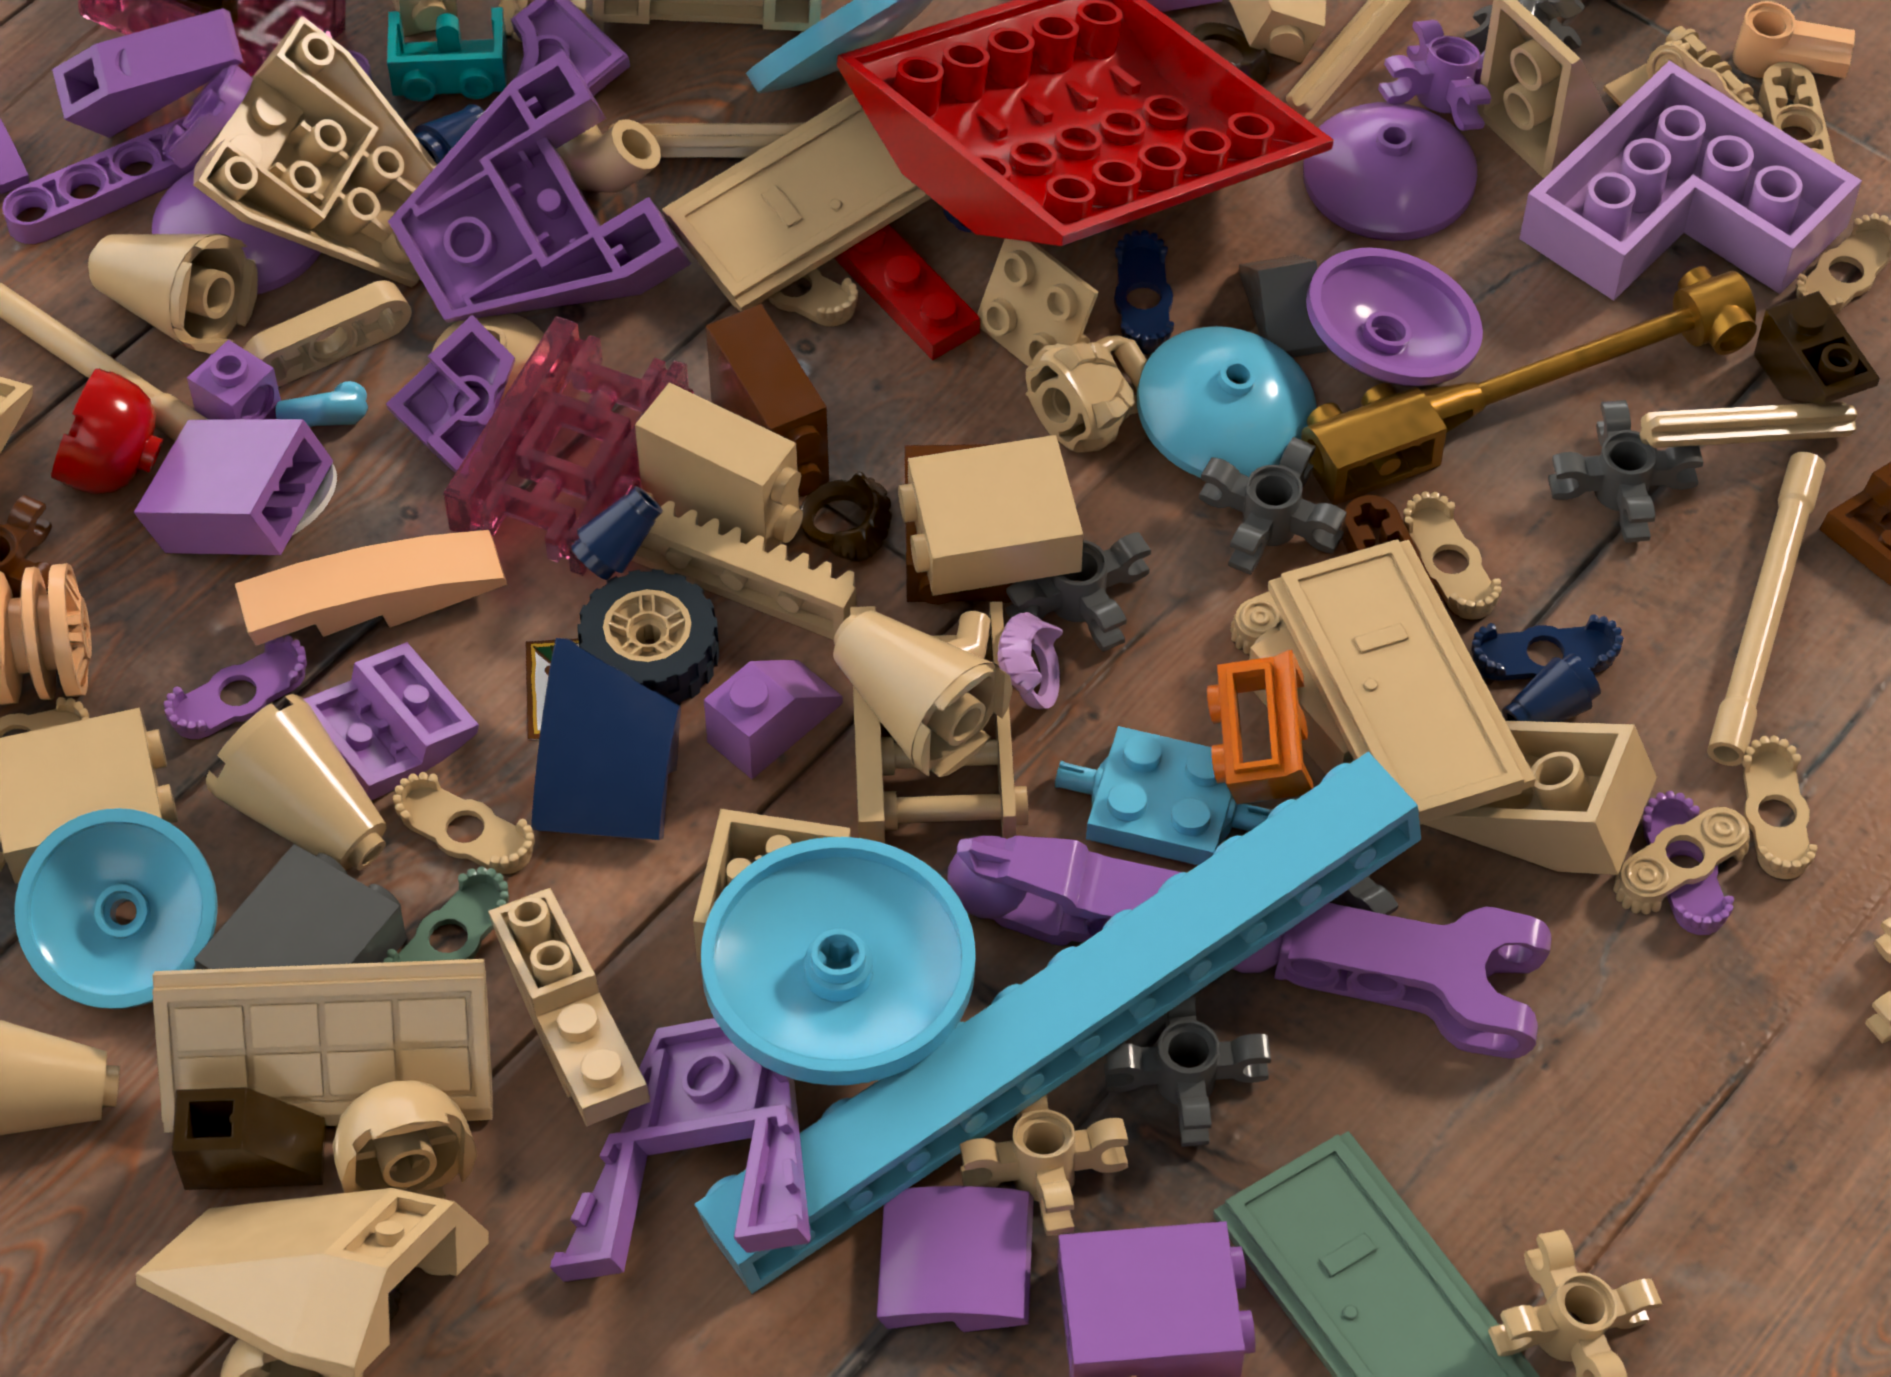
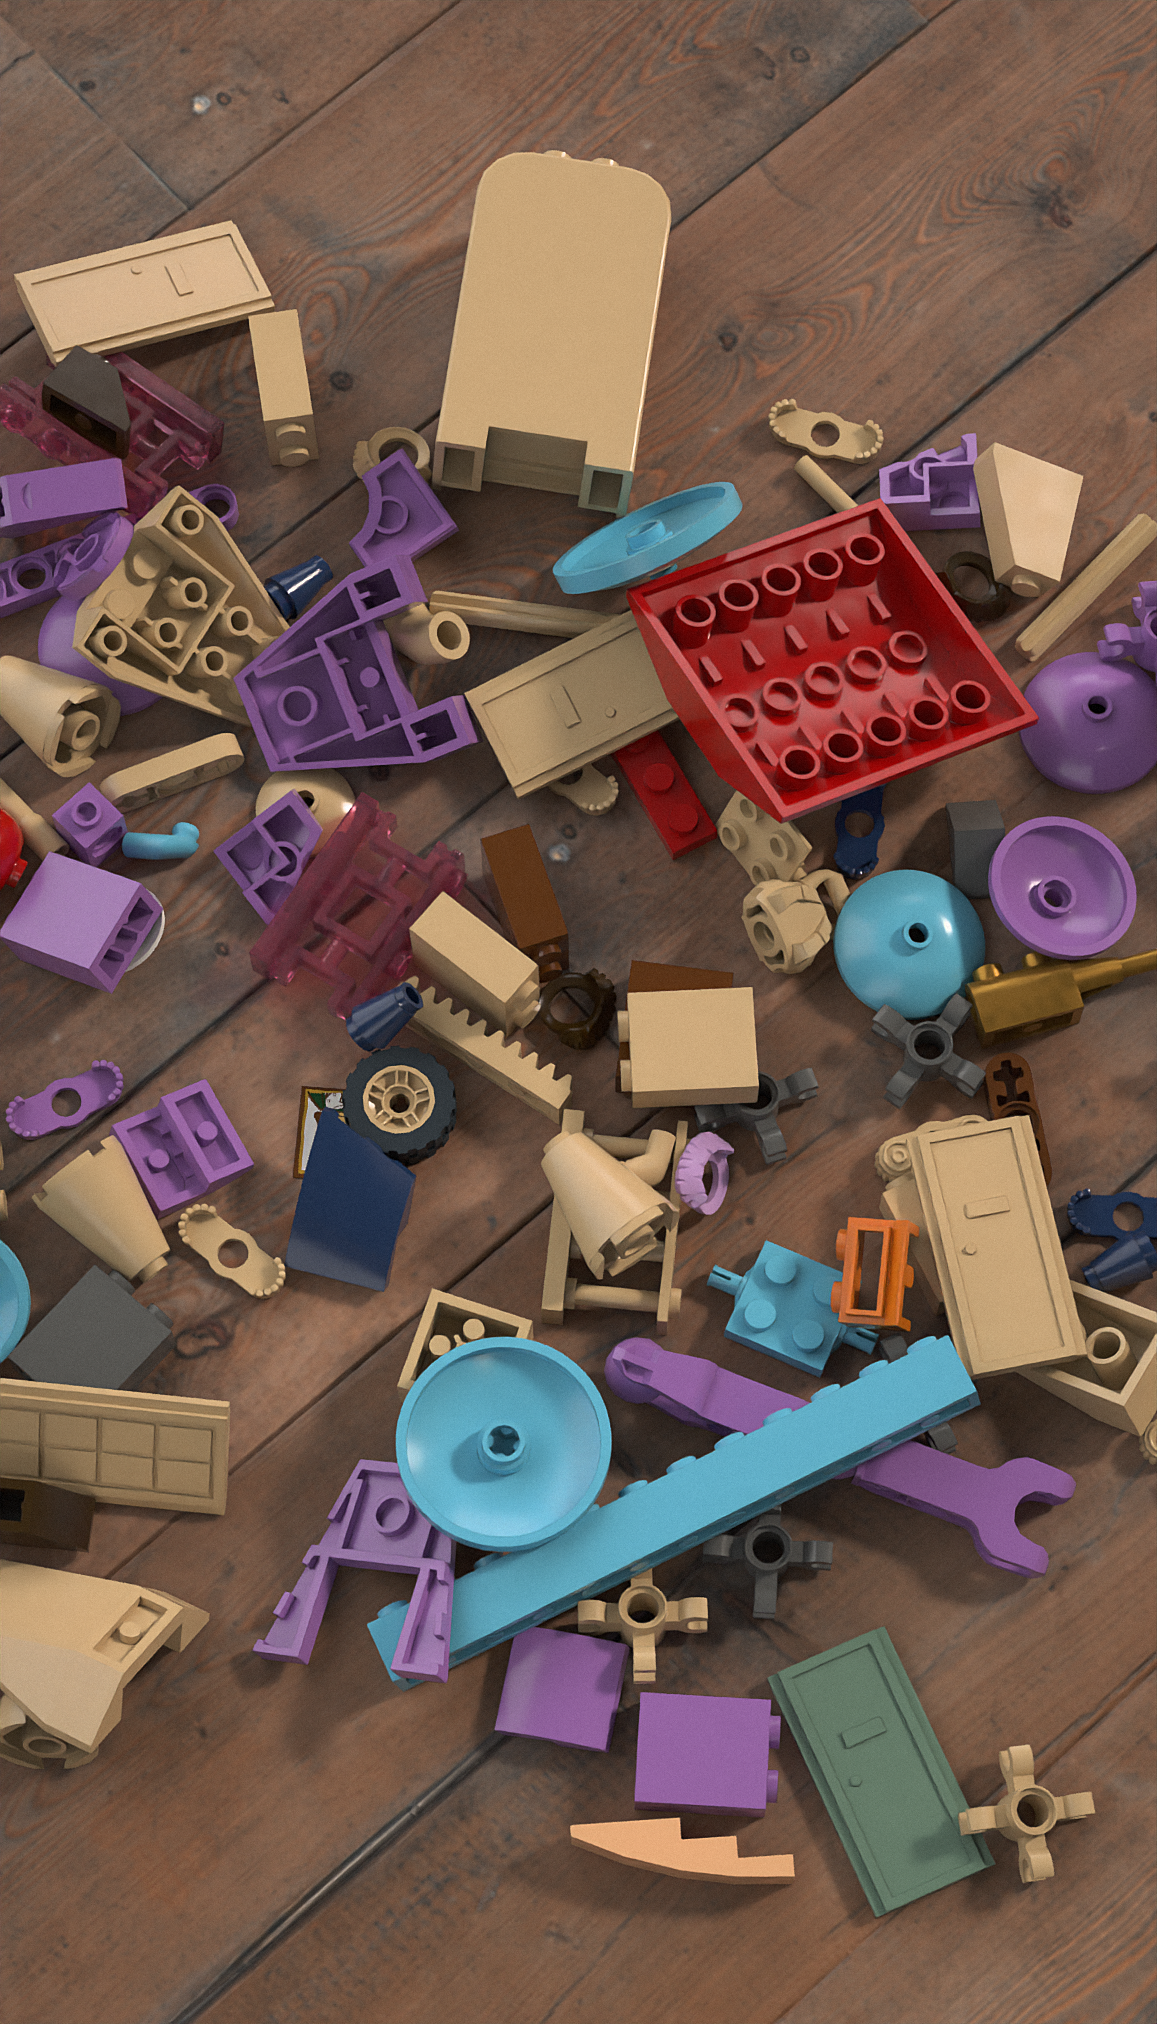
camera: 10 degrees right, 15 degrees up
(375, 580) = (182, 1023): light nougat slope -> none
(403, 1140) = (149, 1537): tan cylinder -> none
(449, 63) = (305, 488): teal window -> none
(466, 908) = (232, 1326): sand green piece -> none
(568, 1008) = (293, 1433): tan slope -> none
(766, 711) = (488, 1185): medium lavender slope -> none
(1433, 530) = (1059, 1087): tan piece -> none

